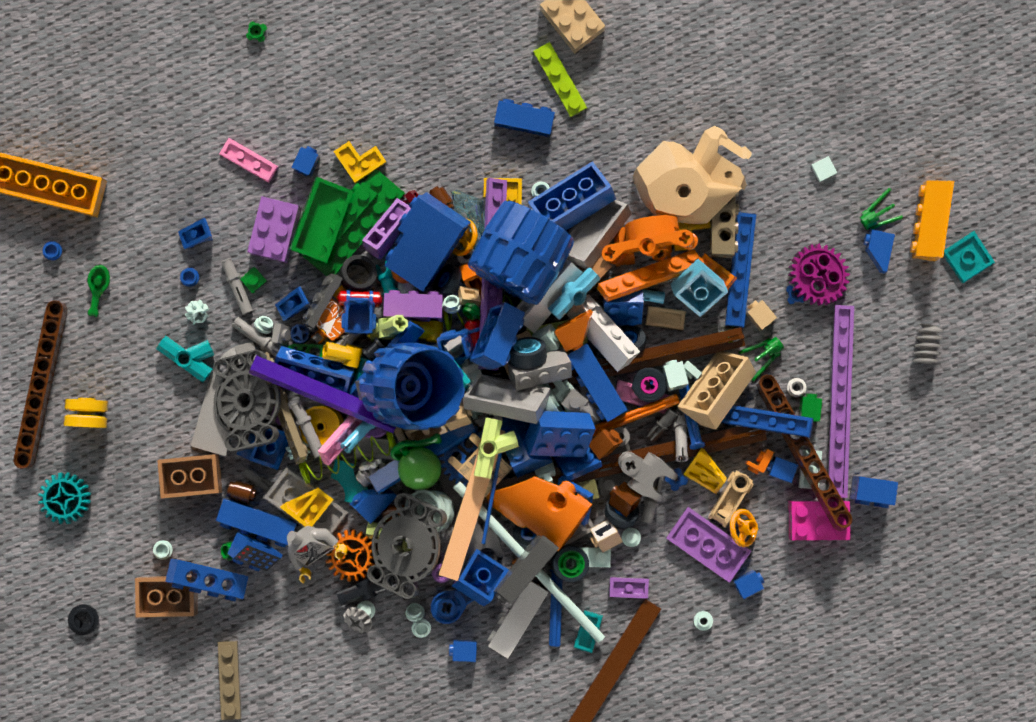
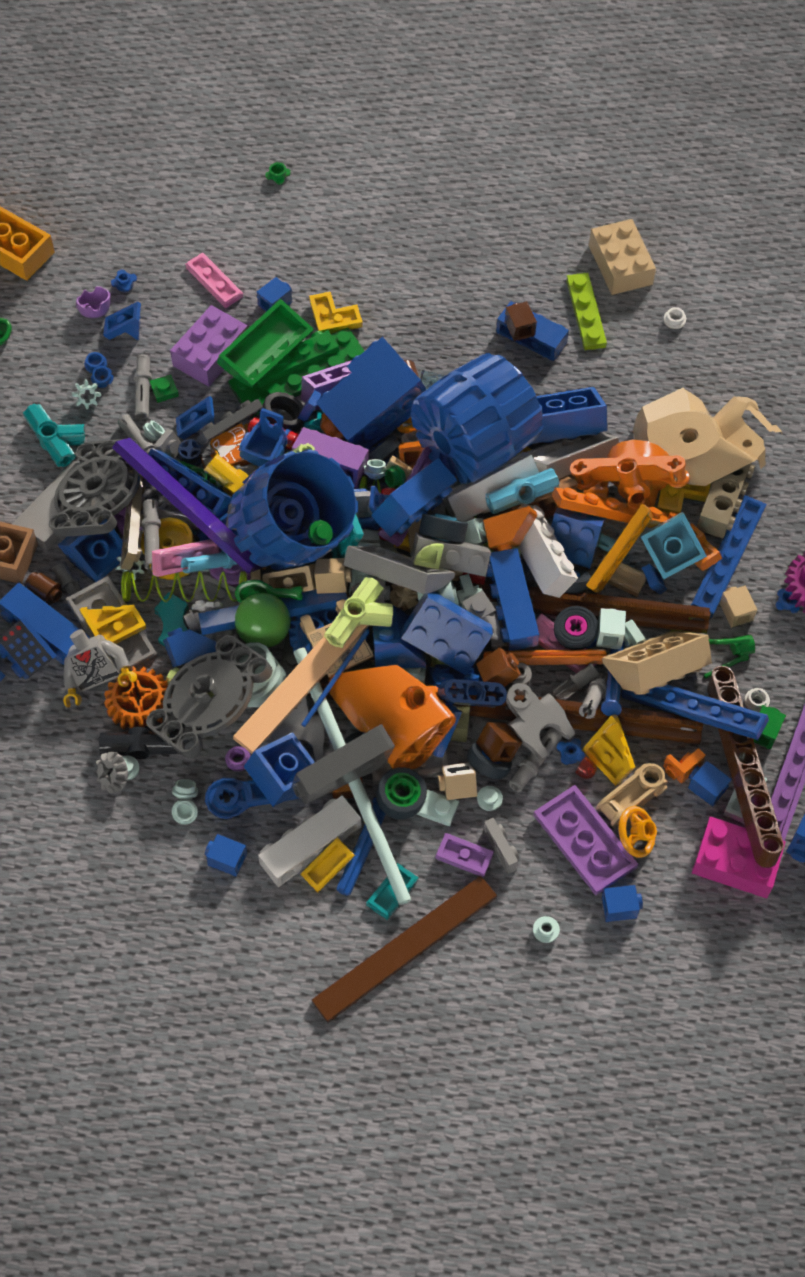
camera: 20 degrees right, 25 degrees down
(163, 223) = (94, 303): none -> medium lavender hair
(181, 189) = (124, 281): none -> blue plate
(200, 293) = (102, 371): none -> blue plate
(378, 263) = (309, 406): none -> blue tile
(441, 400) = (320, 532): none -> green plate
(514, 122) = (520, 321): none -> reddish brown brick
(528, 386) = (430, 556): none -> yellowish green tile
(537, 631) = (327, 864): none -> yellow tile
(587, 475) = (463, 696): none -> dark blue beam
(633, 55) = (675, 313): none -> white plate
(647, 565) = (497, 838): none -> light grey plate
(662, 312) = (620, 549): none -> light orange tile
(691, 316) = (654, 579): none -> blue tile
(691, 489) = (586, 768): none -> clear red hinge

